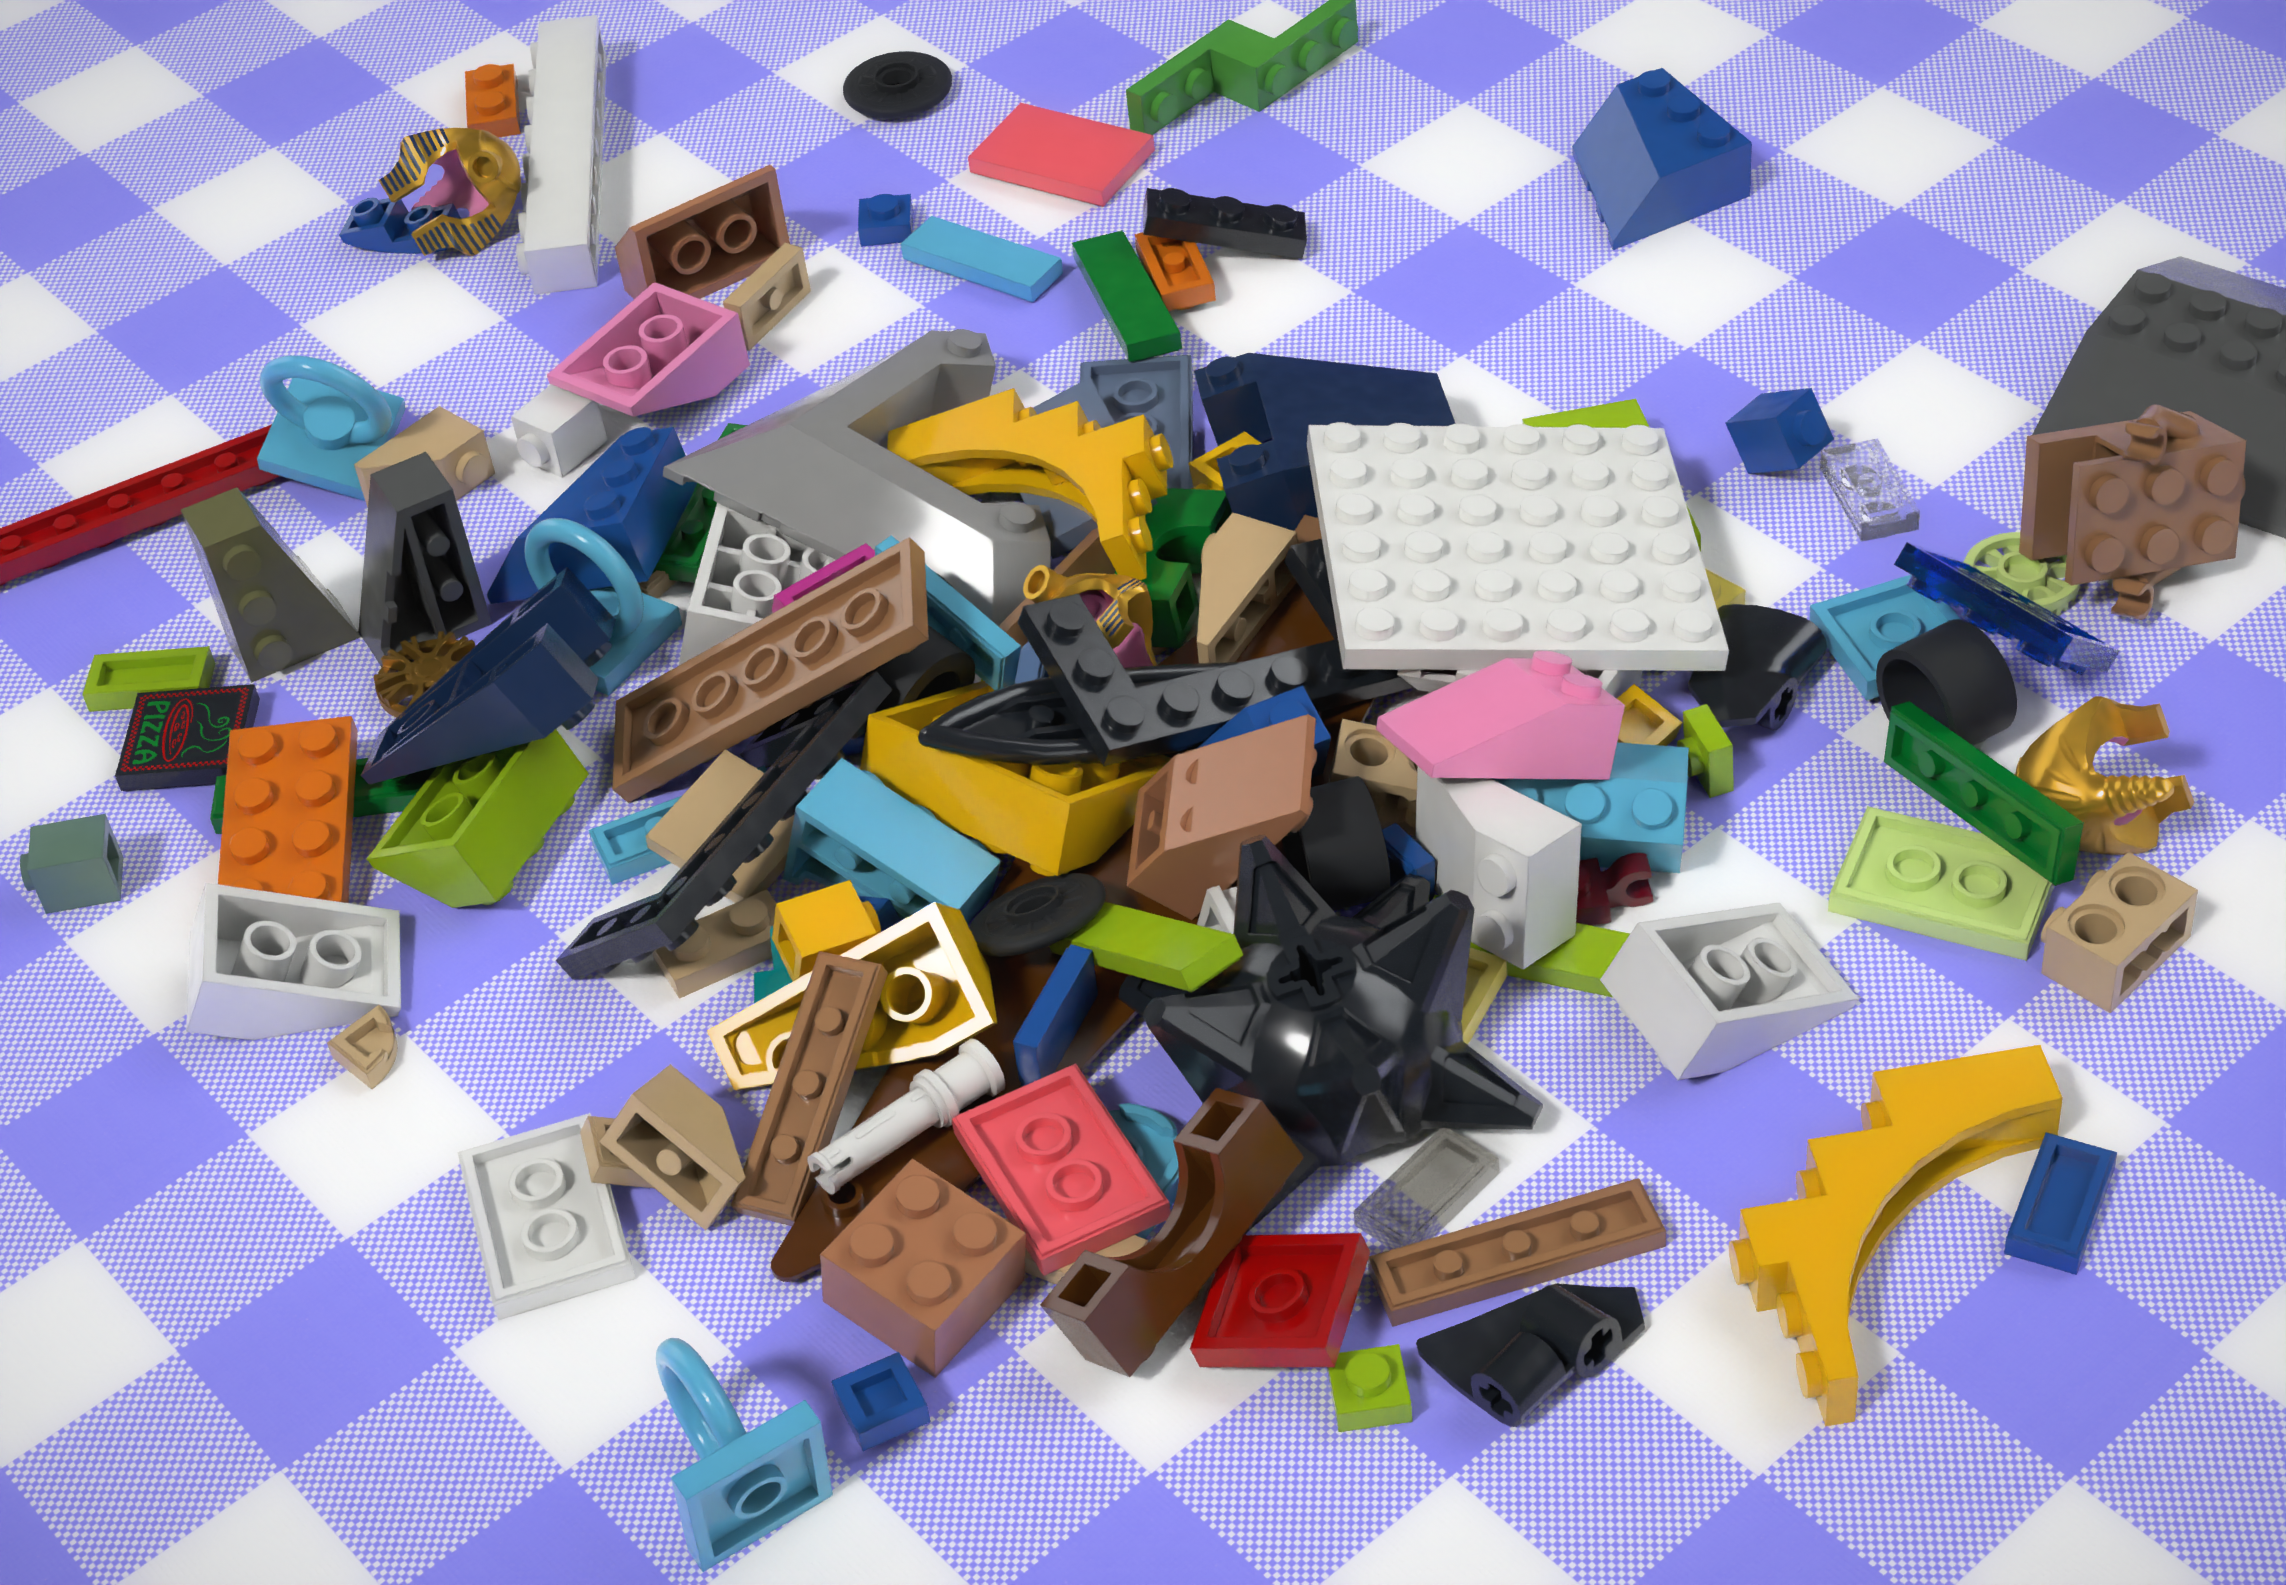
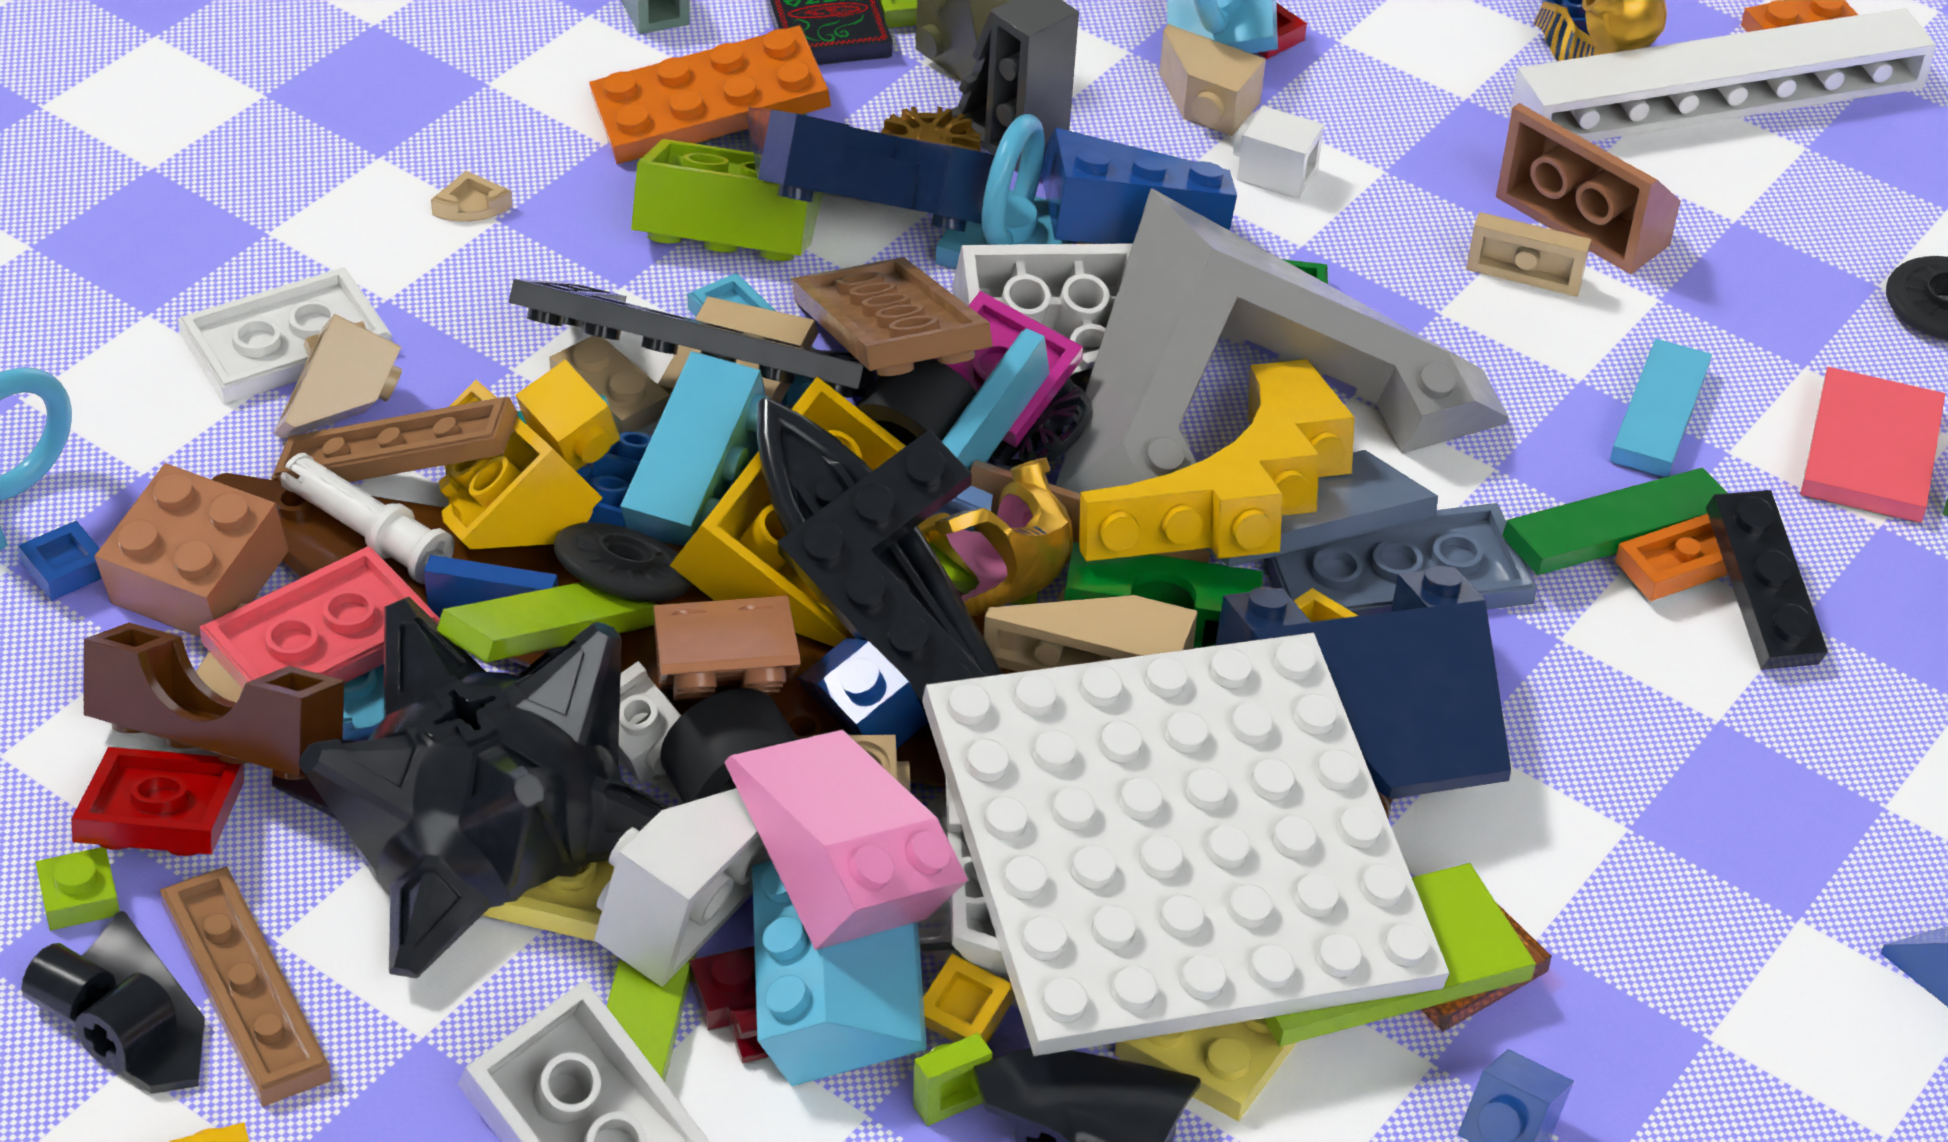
camera: 70 degrees right, 0 degrees up
(288, 963) = (545, 123): white slope -> none
(657, 354) = (1377, 183): bright pink slope -> none
(885, 219) = (1705, 325): blue plate -> none
(1427, 1190) = (319, 909): clear smoke tile -> none

